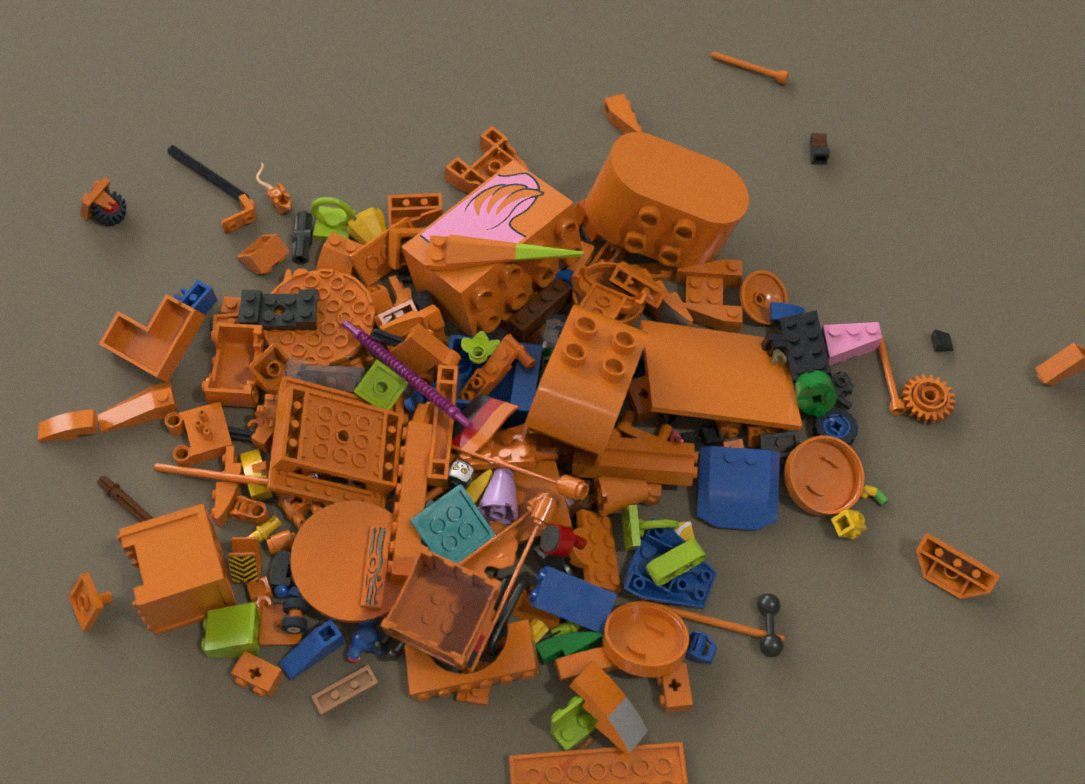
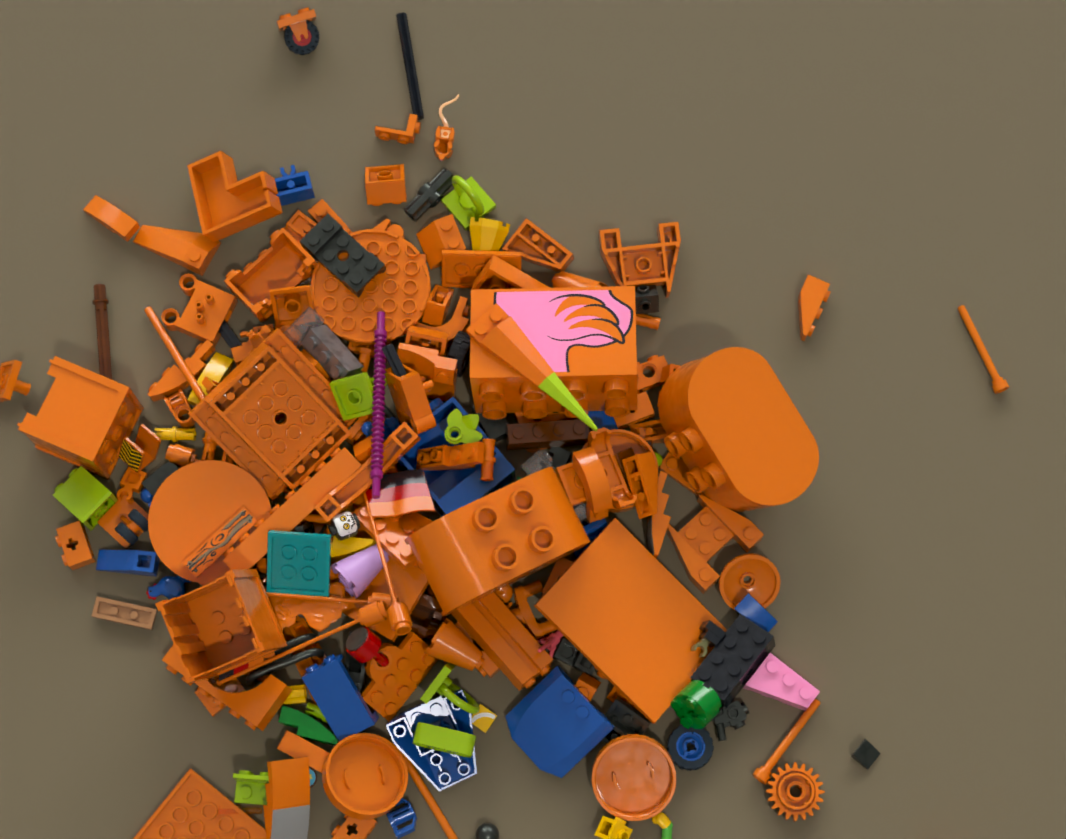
camera: 45 degrees right, 15 degrees up
(606, 299) = (595, 483): none -> orange arch
(819, 147) = (954, 485): pearl dark grey leg -> none

